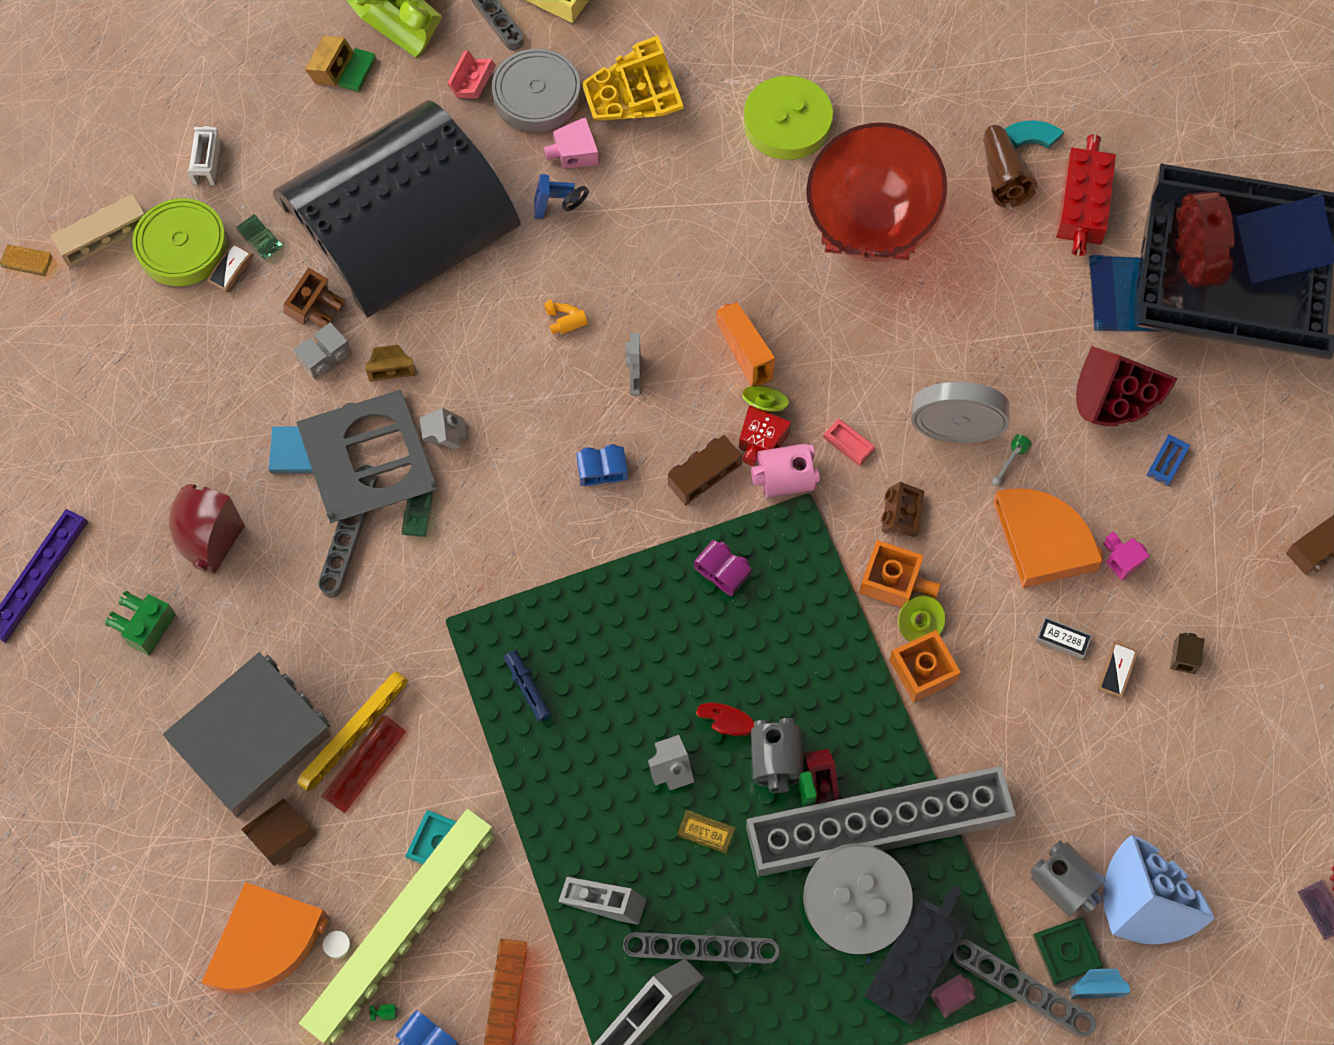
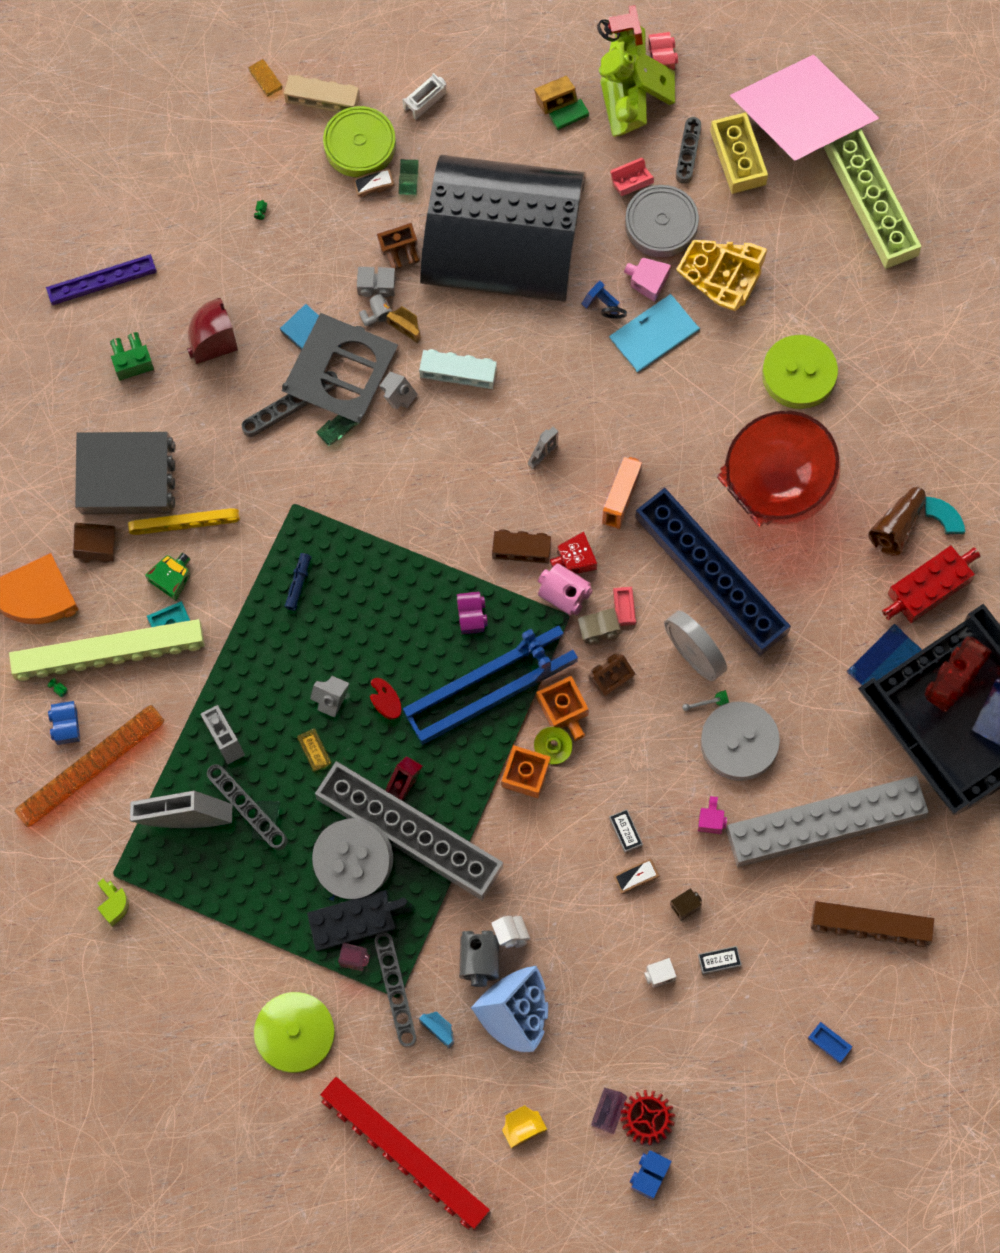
camera: 45 degrees right, 5 degrees up
(139, 377) = (261, 207): none -> green piece
(336, 945) = (68, 630): white tile -> none
(351, 372) = (380, 309): none -> light grey piece
(363, 764) = (173, 545): clear red slope -> none
(391, 794) = (170, 575): none -> green torso
(481, 363) = (458, 369): none -> light aqua brick
(575, 319) = (538, 389): light orange plant -> none
(602, 465) = (466, 492): blue brick -> none
(629, 188) = (655, 335): none -> medium azure container
(765, 398) = (599, 536): lime dish -> none
(777, 754) = (390, 743): dark grey cylinder -> none
(807, 789) = (384, 776): green tile -> none
(813, 538) = (527, 646): none -> blue piece
(849, 476) = (600, 626): none -> dark tan brick
(897, 342) = (712, 571): none -> dark blue brick
(1045, 536) = (676, 764): orange brick -> none
(1067, 950) = (443, 995): dark green tile -> none
(1071, 826) = (511, 931): none -> white brick
(1076, 465) = (740, 741): none -> light grey brick
(1119, 389) = (815, 718): dark red brick -> none
(1160, 475) = (784, 785): blue tile -> none
(1221, 470) = (826, 821): none -> light grey brick
(1234, 736) = (660, 973): none -> white brick
(1266, 676) = (719, 960): none -> tile
(1272, 1003) = (522, 1125): none -> yellow slope

